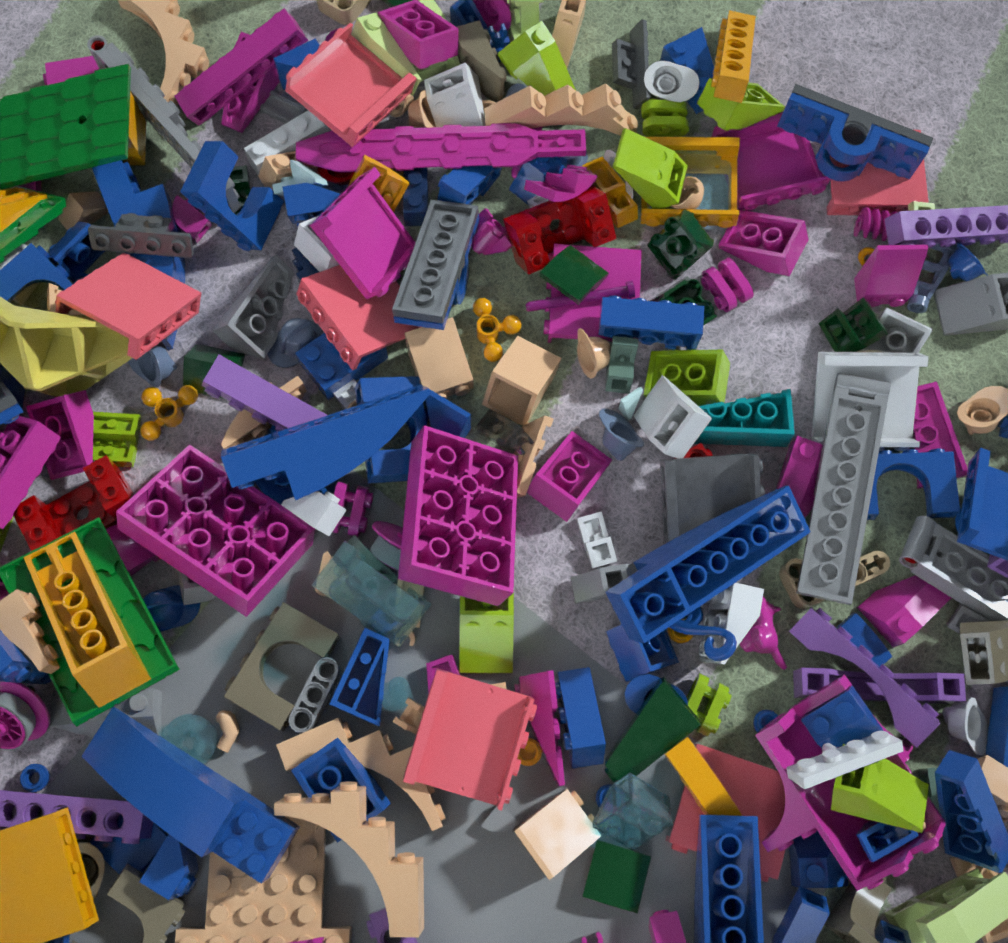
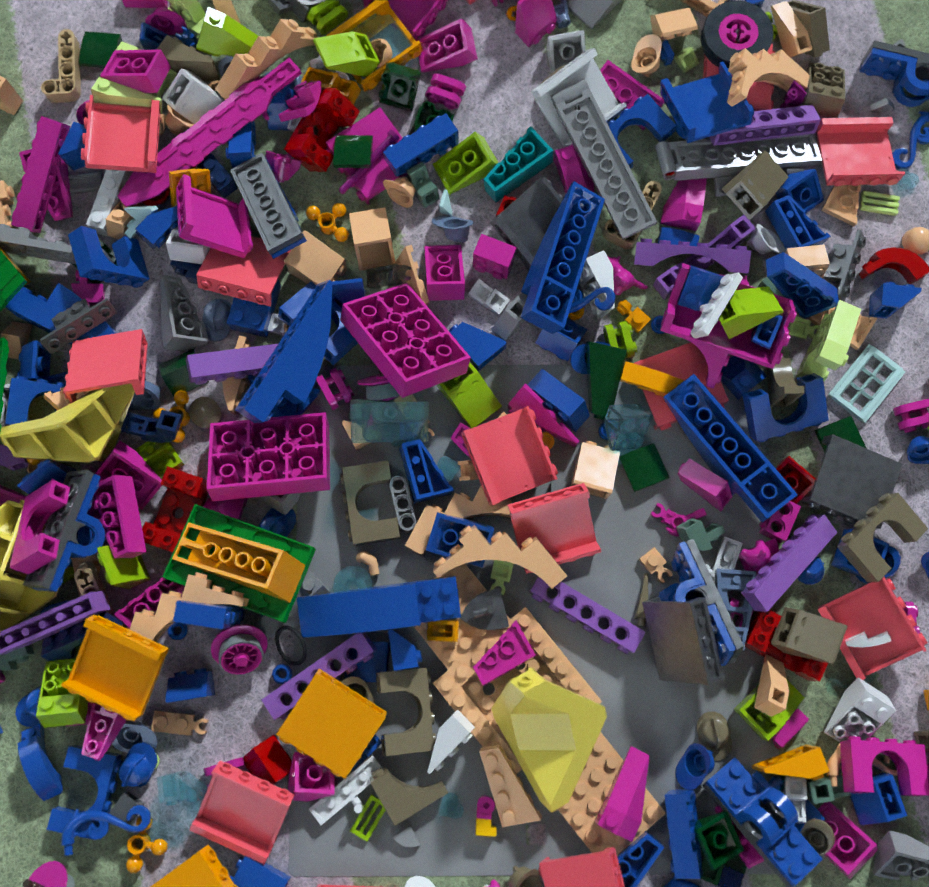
camera: 35 degrees left, 5 degrees up
(80, 747) = (295, 663): none -> black tyre
(135, 409) = (153, 429): none -> dark blue arch
(199, 429) = (205, 411): none -> dark tan hat
(233, 884) = (443, 631): none -> light orange slope
(301, 897) = (486, 611): none -> flat silver shield
(317, 510) = (318, 401): white slope -> none
(353, 867) = (501, 573): none -> yellowish green plate
(463, 863) = (559, 522): none -> coral panel
(539, 582) = (478, 344): none -> blue slope
(635, 501) = (494, 257): none -> dark pink brick
(671, 419) = (477, 194): white slope -> none
(744, 695) = (637, 318): none -> light orange plate
(853, 328) = (538, 63): dark green slope -> none
(935, 864) = (801, 328): none -> yellowish green plate

